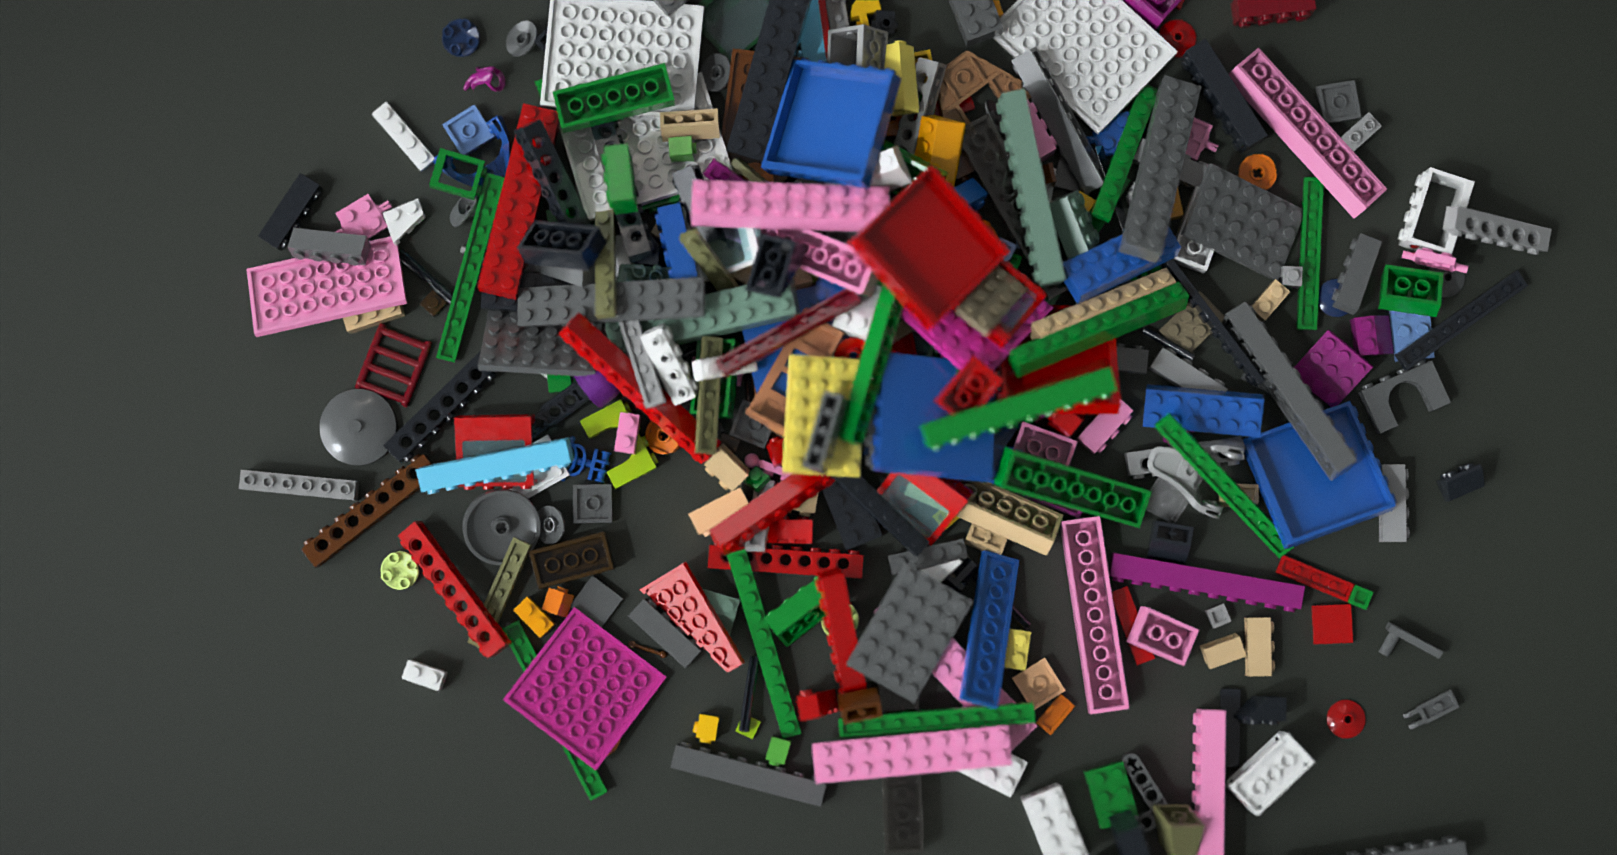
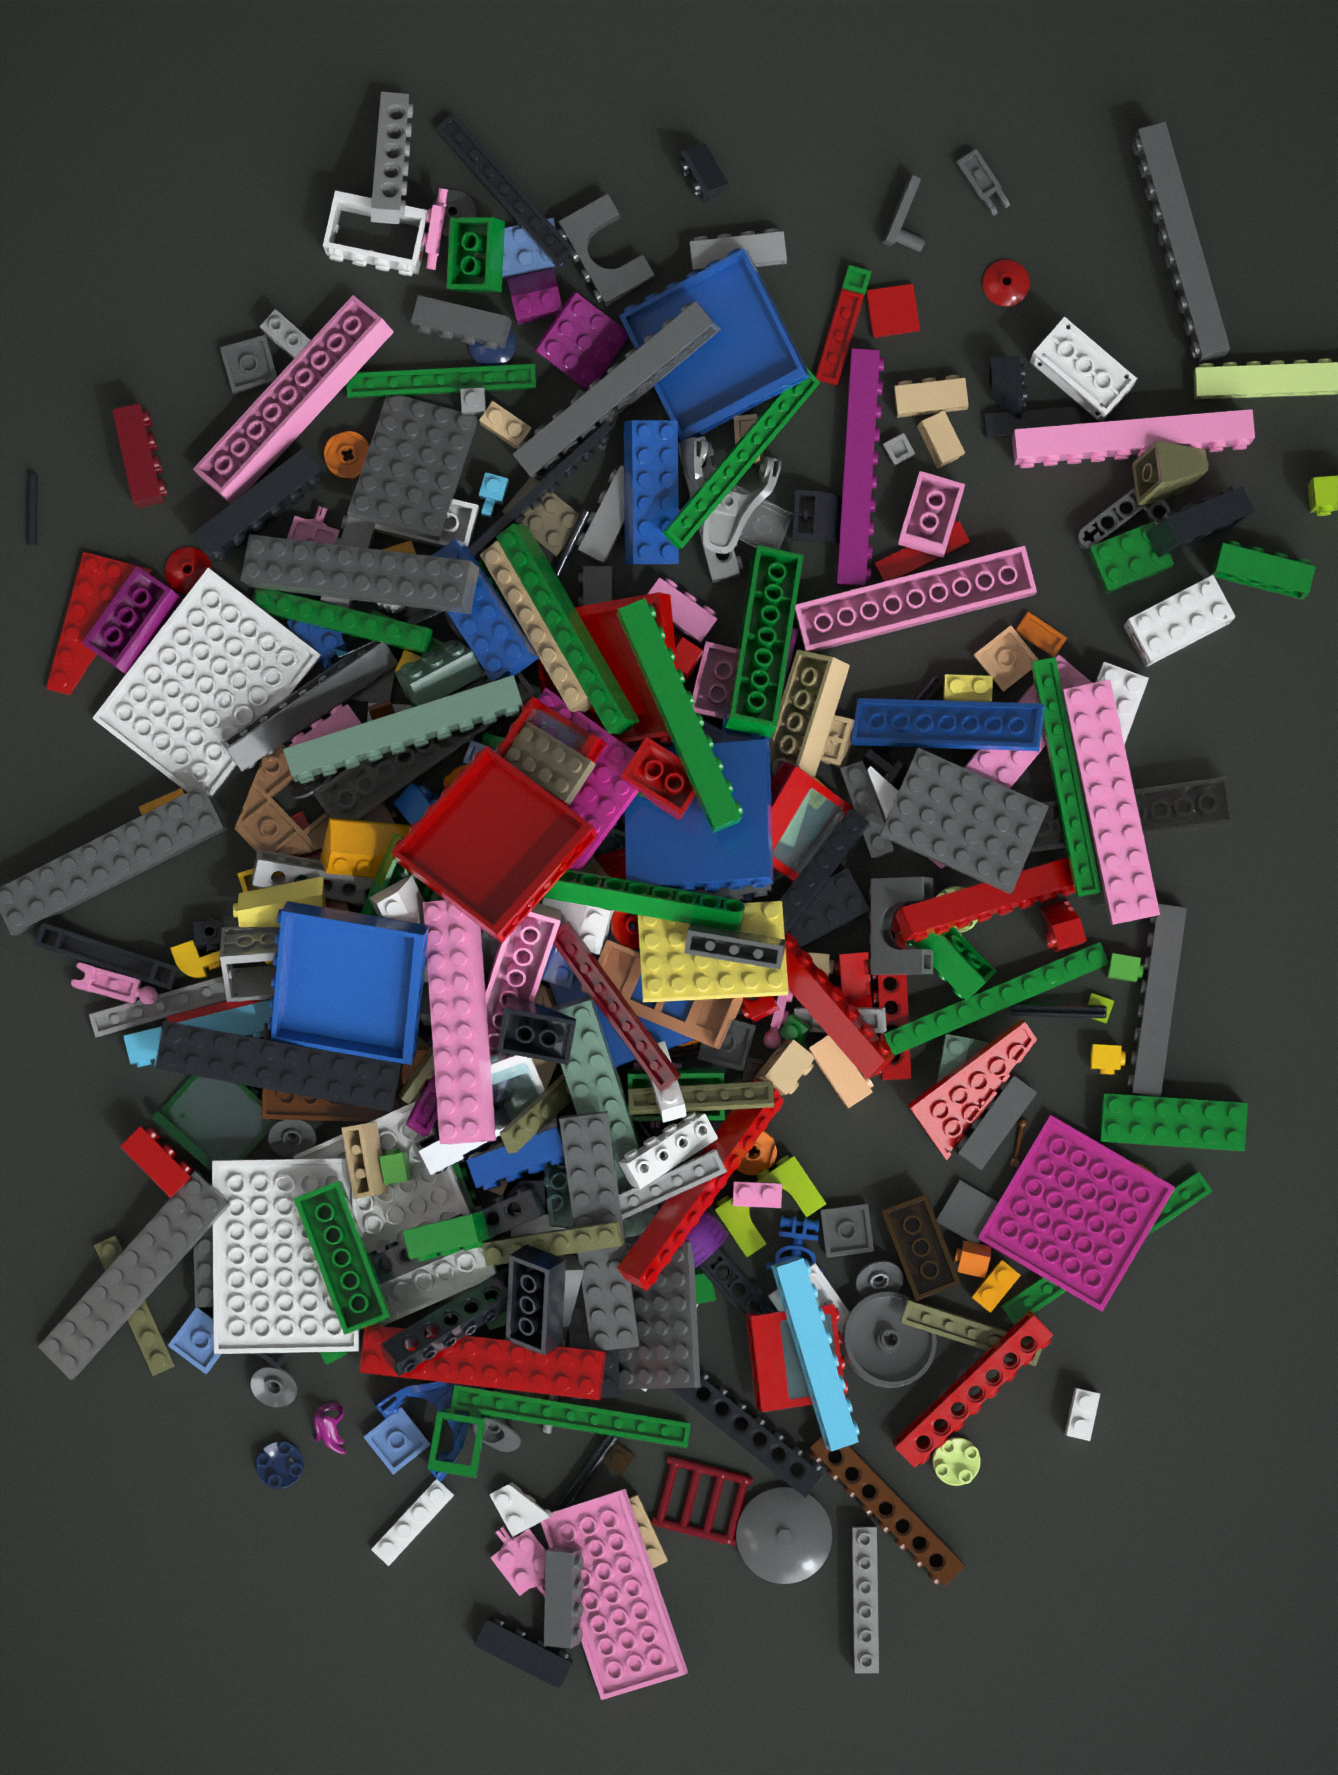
camera: 95 degrees left, 0 degrees up
(649, 775) = (1173, 1122): none -> green brick
(808, 558) = (886, 898): none -> dark grey arch
(859, 705) = (1059, 871): reddish brown brick -> none
(1216, 285) = (492, 491): none -> medium azure brick

